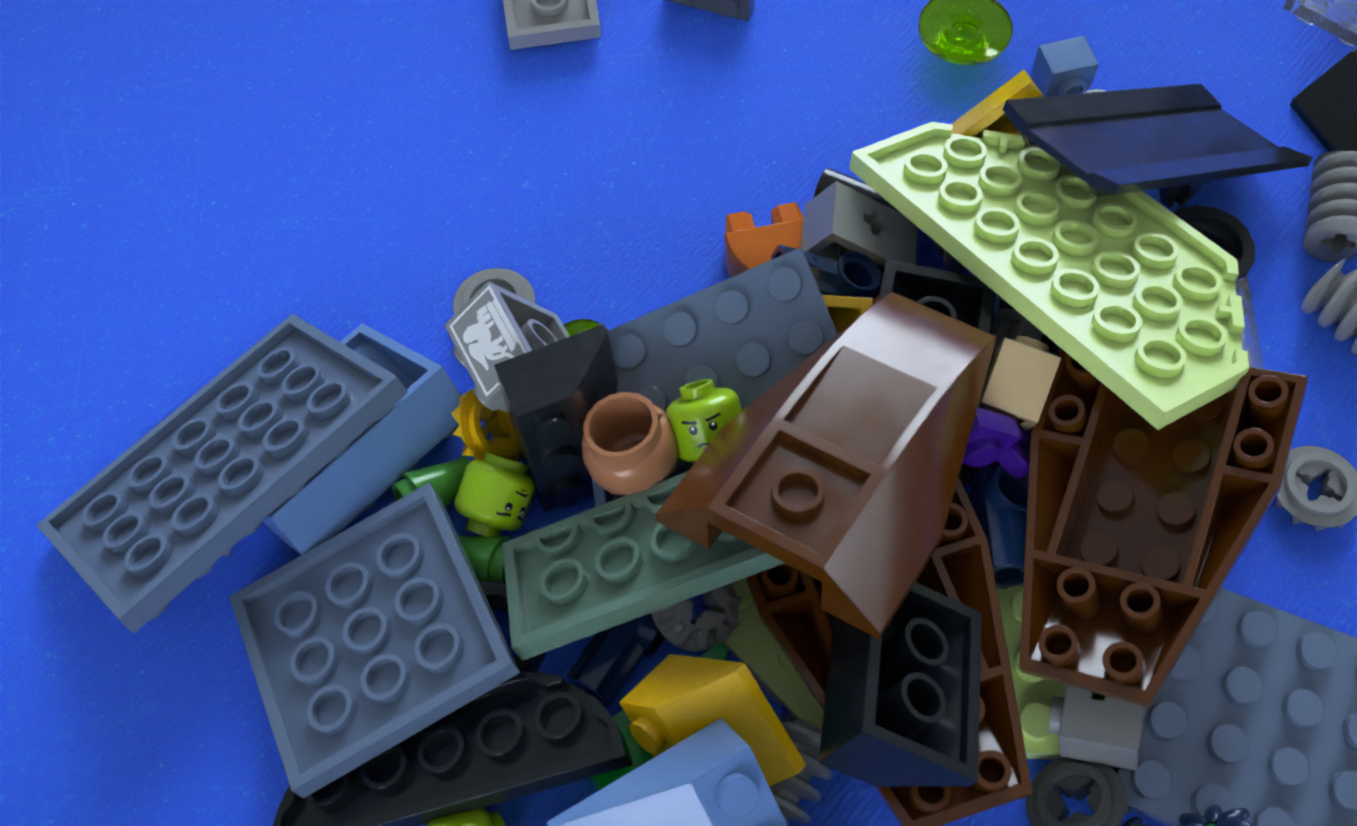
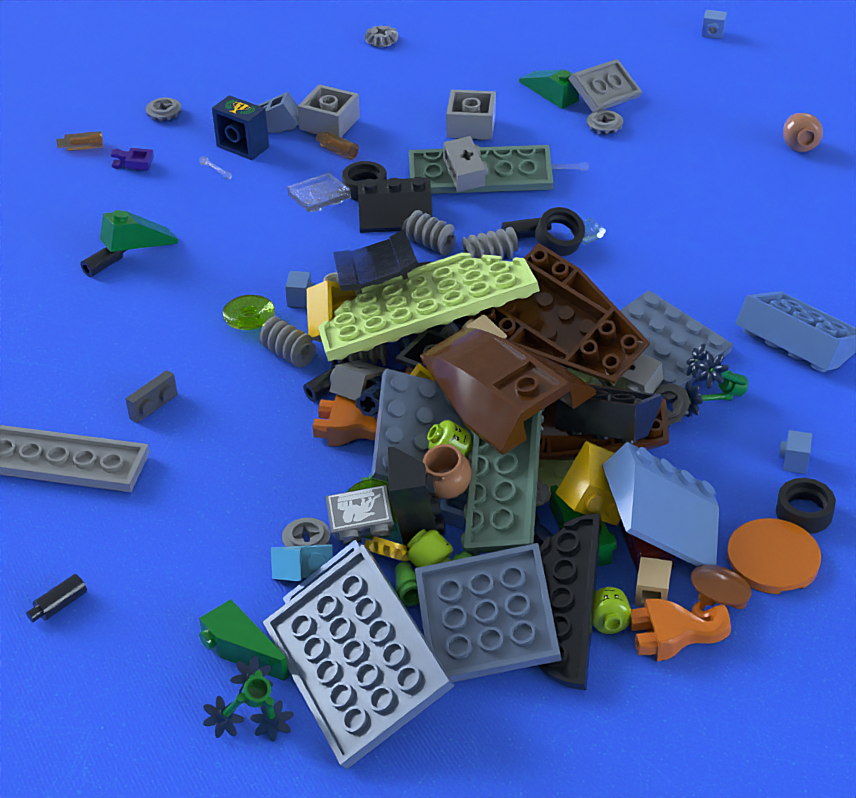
camera: 70 degrees left, 20 degrees down
(84, 347) = (255, 693): none -> dark blue plant
(245, 297) = (239, 639): none -> green slope
(272, 53) = (57, 598): none -> black cylinder
(421, 313) = (298, 562): none -> medium azure slope
(919, 93) = (287, 342): none -> light grey piece

